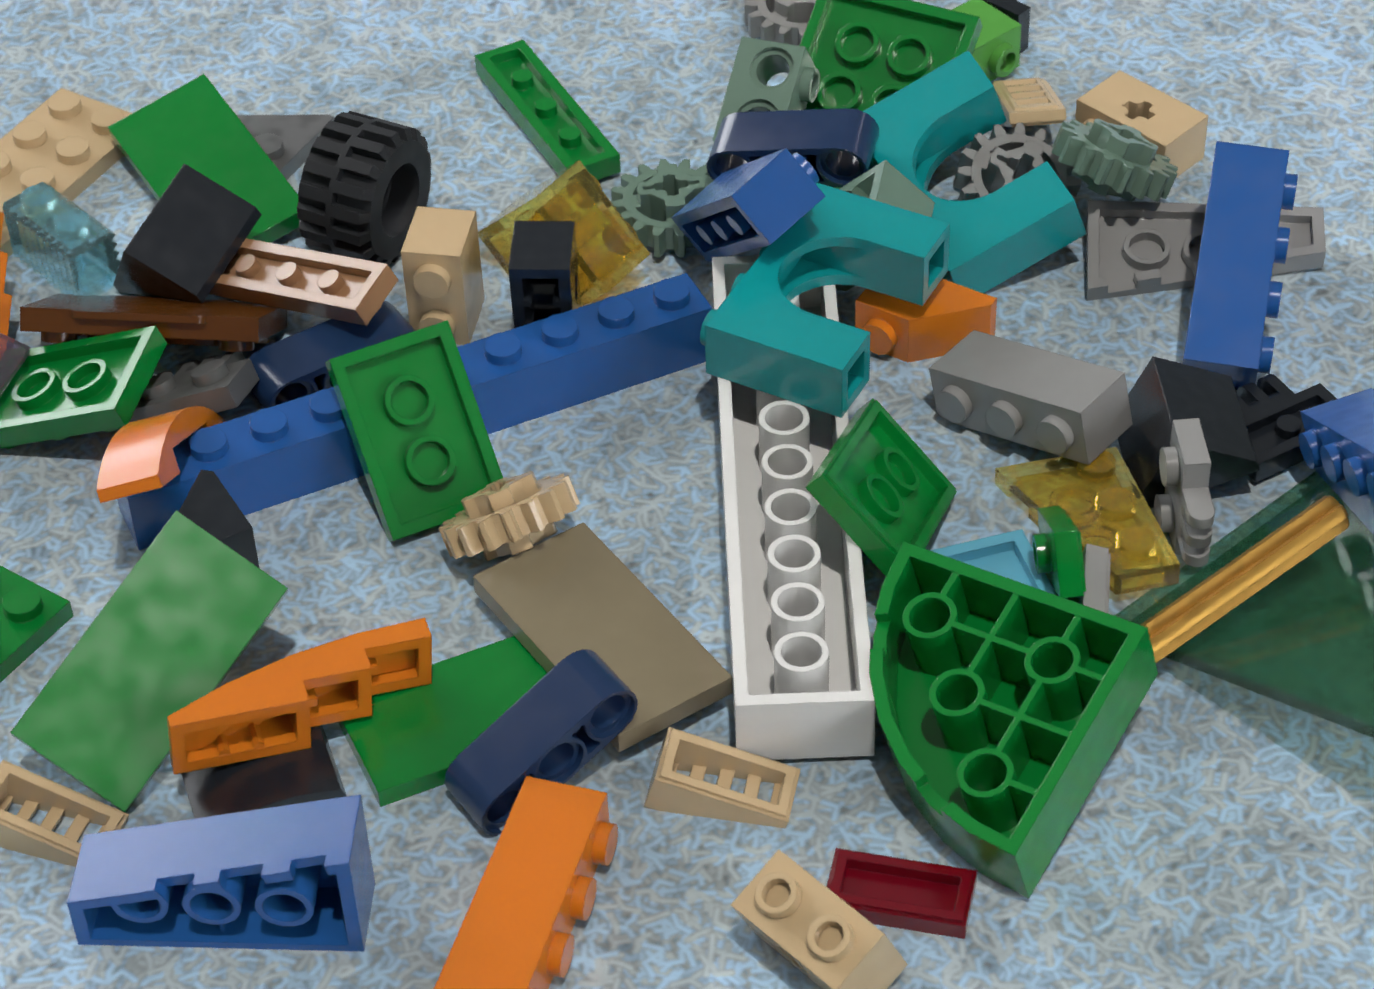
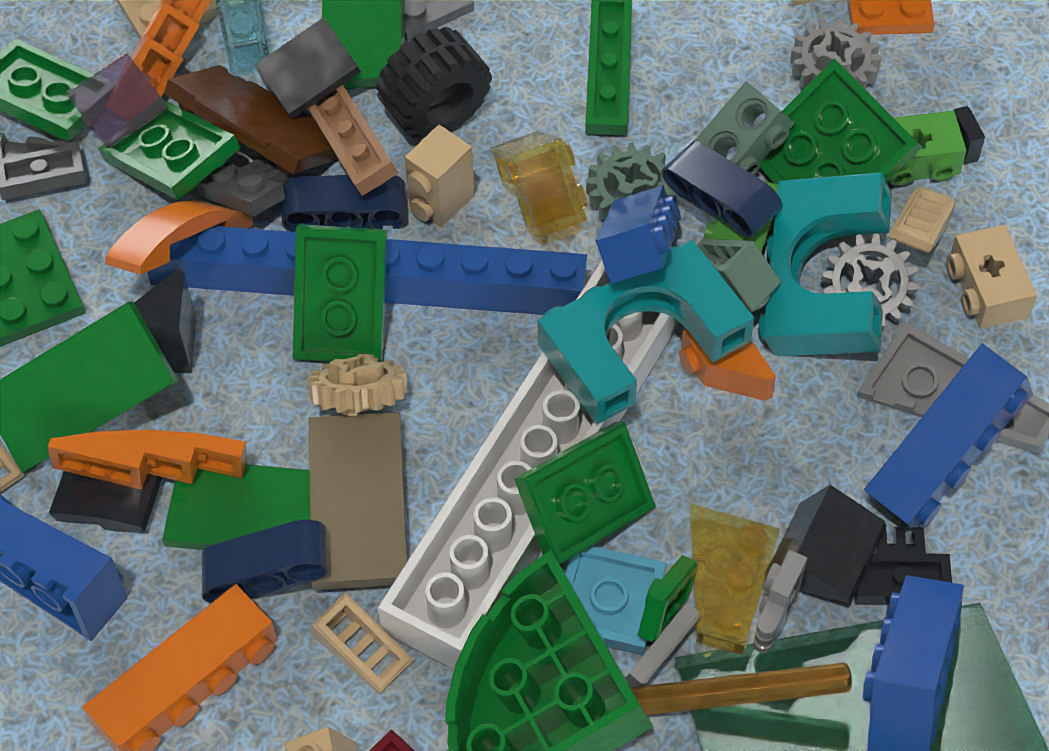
camera: 30 degrees right, 15 degrees up
(543, 270) = (495, 212): black brick -> none
(1031, 396) = (742, 465): light grey brick -> none
(1114, 160) = (935, 304): sand green gear -> none

